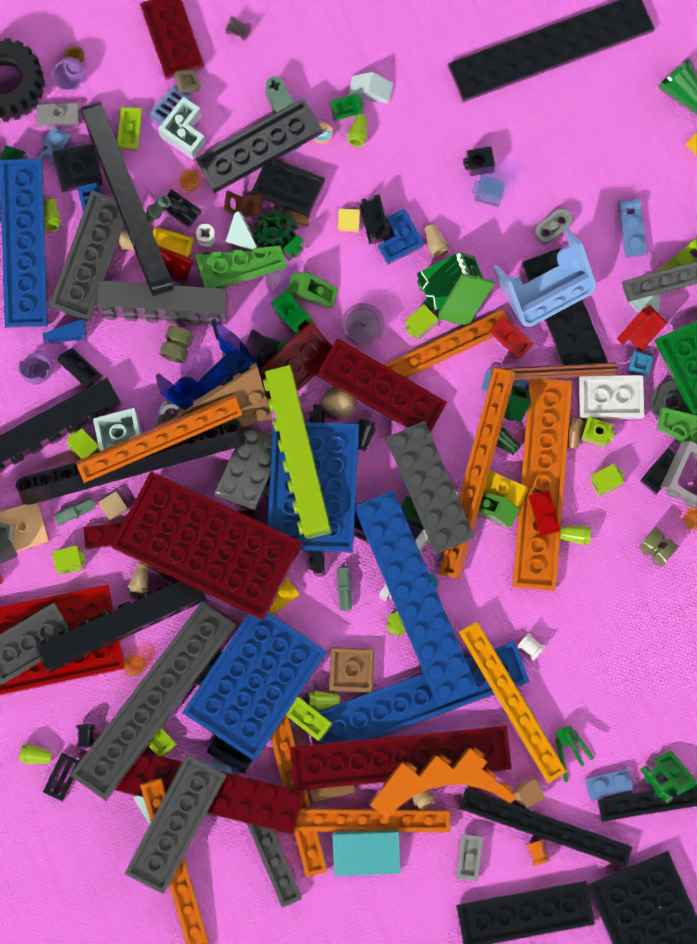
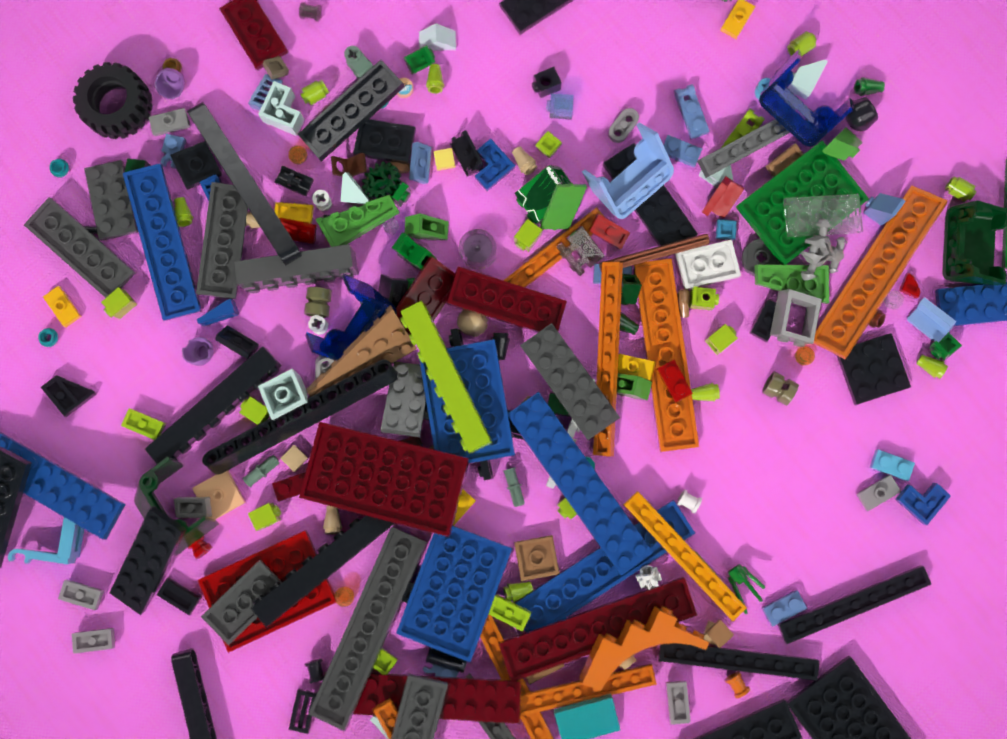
camera: 10 degrees left, 5 degrees up
(34, 755) = (272, 698): lime cone -> none
(129, 128) = (234, 120): lime plate -> none
(155, 210) = (272, 186): sand green axle -> none
(159, 438) = (319, 392): orange tile -> none
(166, 366) = (313, 322): none -> white bush
(223, 117) = (314, 92): none -> lime brick
(321, 218) = (420, 163): none -> medium blue plate
(466, 229) = (548, 144): none -> lime plate
(468, 717) = (648, 577): none -> white gear
(480, 348) = (584, 246): none -> clear smoke plate
(610, 267) = (682, 151): none -> medium blue plate
(673, 771) = (840, 586): green plate -> none

